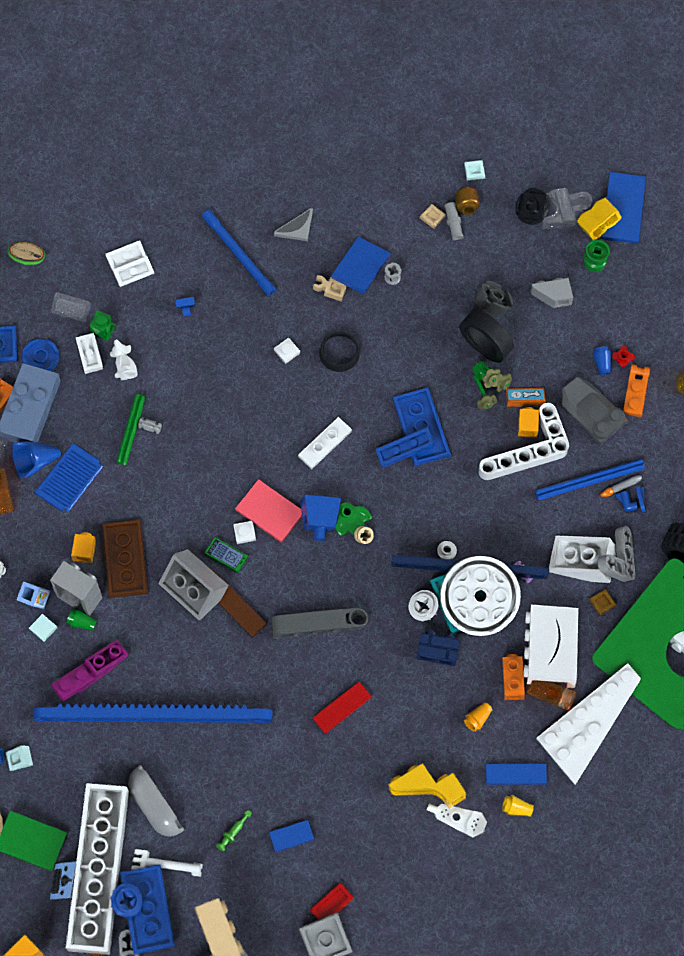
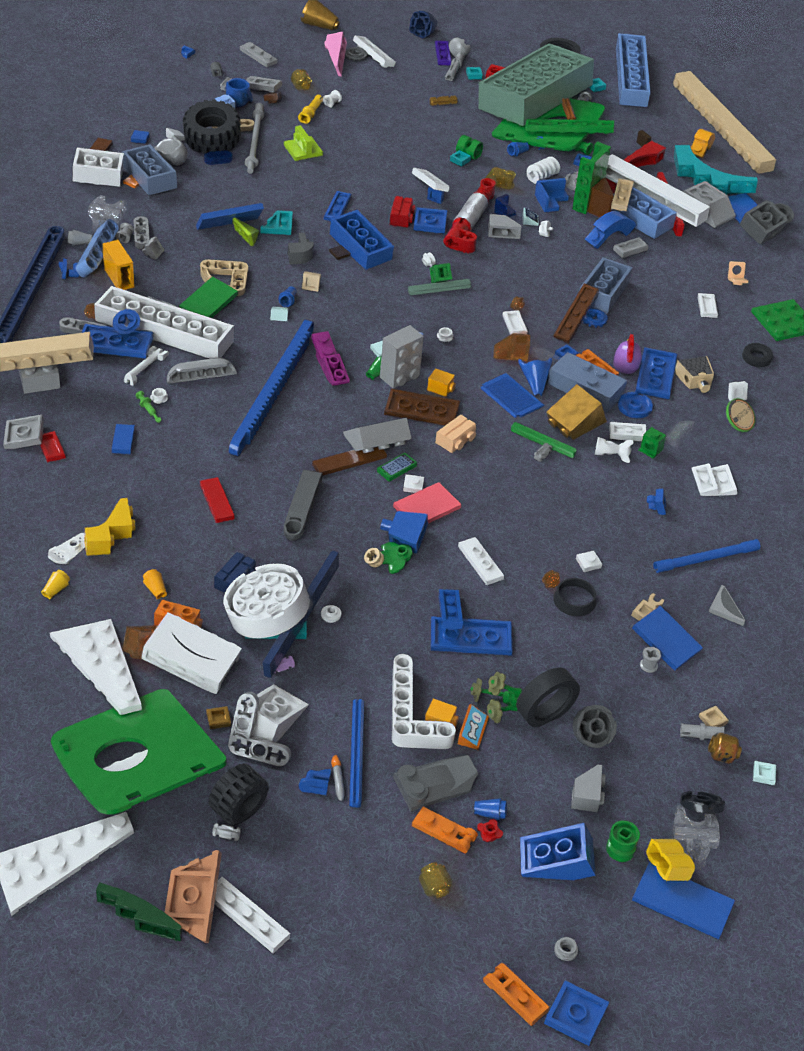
camera: 105 degrees right, 25 degrees down
(88, 404) = (576, 413): none -> pearl gold slope
(159, 510) = (456, 434): none -> light nougat brick
(213, 822) = (159, 395): none -> white plate
(327, 379) = (551, 579): none -> clear orange plate
(516, 774) = (86, 596): blue tile -> none
(626, 301) = (558, 854): none -> blue slope

